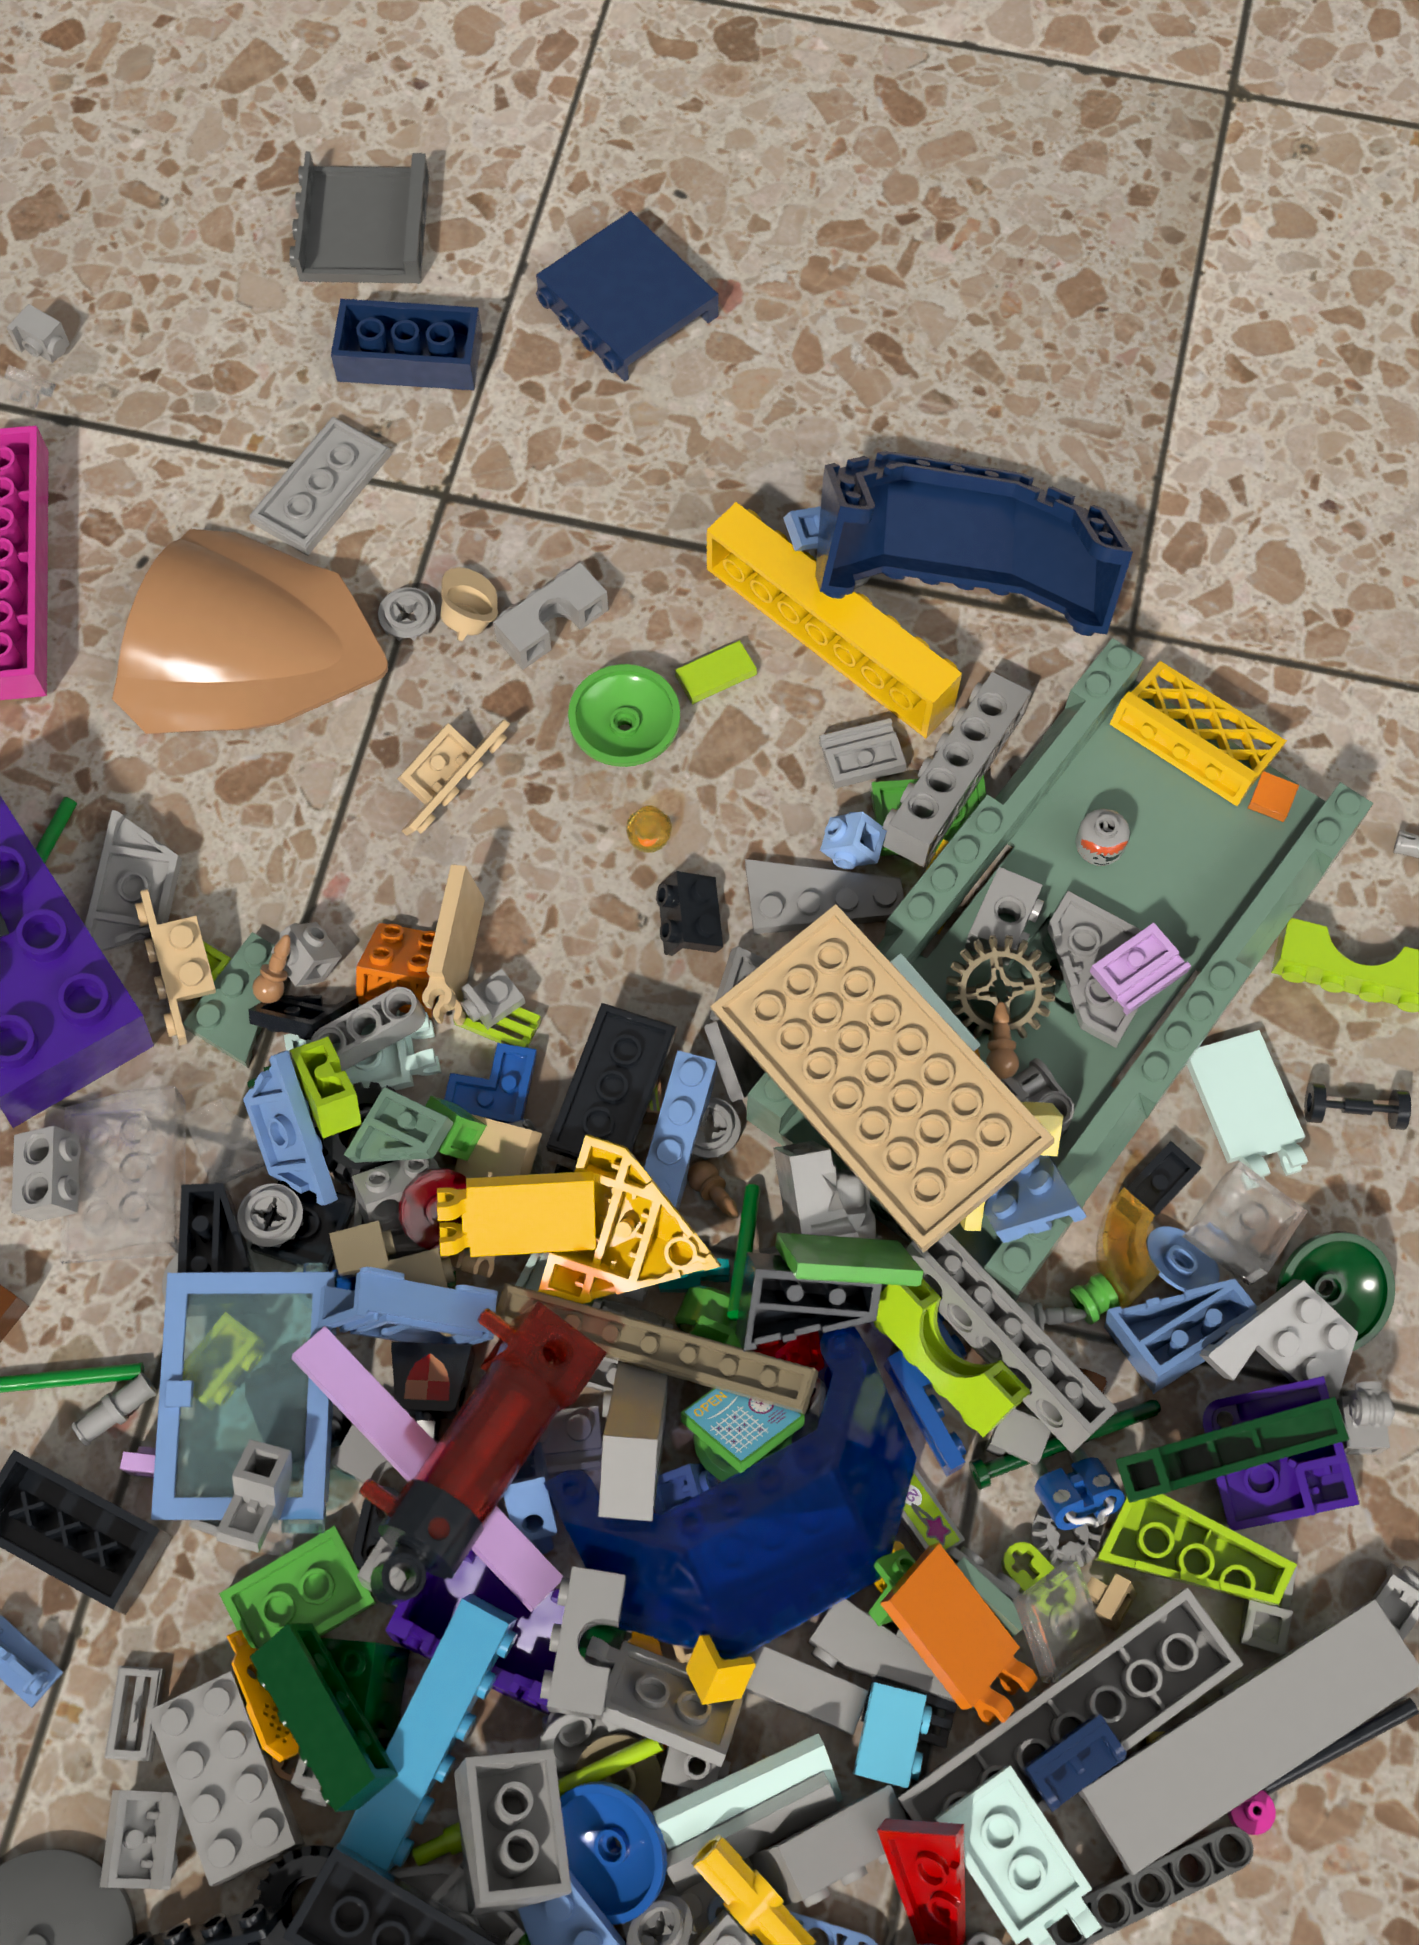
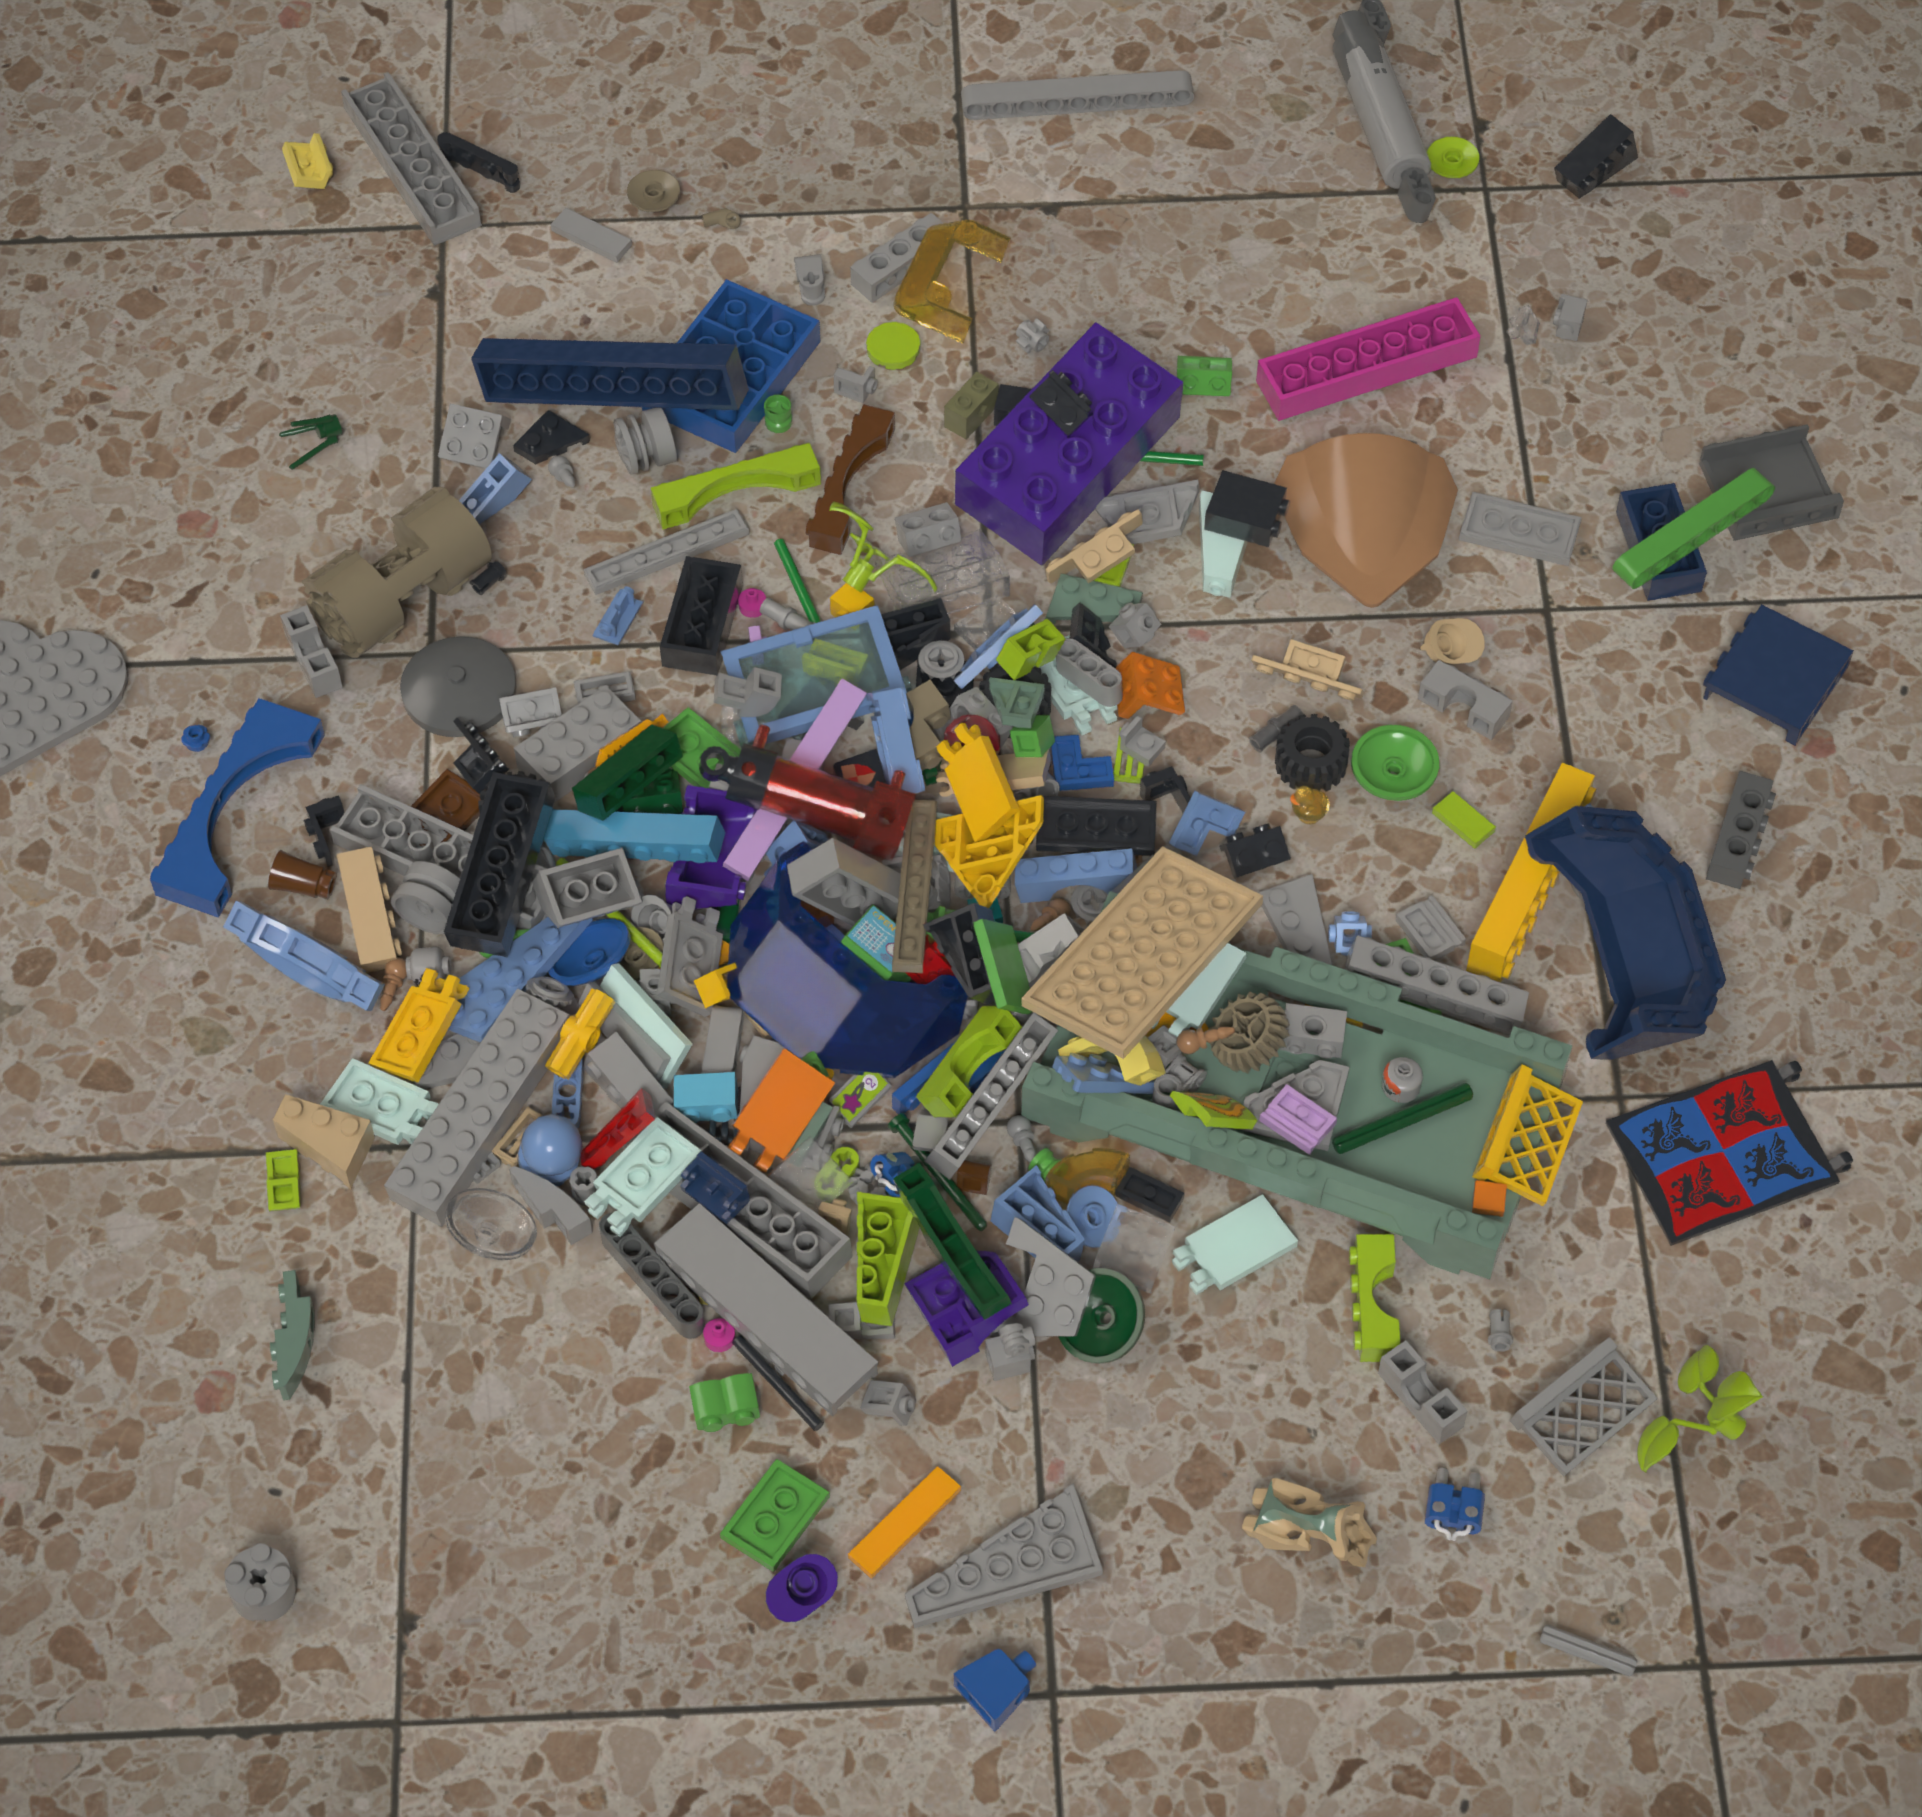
camera: 75 degrees right, 10 degrees down
(64, 1452) = (750, 602): none -> dark pink tile
(96, 1280) = (861, 570): none -> lime plant
(132, 1312) = (849, 600): none -> yellow brick
(190, 762) = (1246, 508): none -> black brick
(211, 812) = (1219, 555): none -> light aqua slope
(269, 984) = (1105, 609): medium nougat bar -> none
(407, 600) = (1425, 603): light grey gear -> none
(421, 296) = (1693, 528): none -> bright green beam
(453, 944) = (1172, 704): tan tile -> none
(518, 835) = (1270, 732): none -> flat silver pin
(569, 778) = (1317, 735): none -> black tyre
(572, 976) = (1162, 783): none -> black bracket
(589, 1601) = (732, 882): light grey arch -> none
(634, 953) = (1202, 815): none -> medium blue plate
(801, 388) = (1751, 792): none -> dark grey brick
(1103, 1060) = (1214, 1109): none -> lime slope
(1144, 852) = (1402, 1118): none -> dark green axle
(1229, 553) = (1724, 1151): none -> flag
(1365, 1830) = (724, 1402): none -> bright green brick
(1398, 1106) = (1265, 1344): black wheel -> none

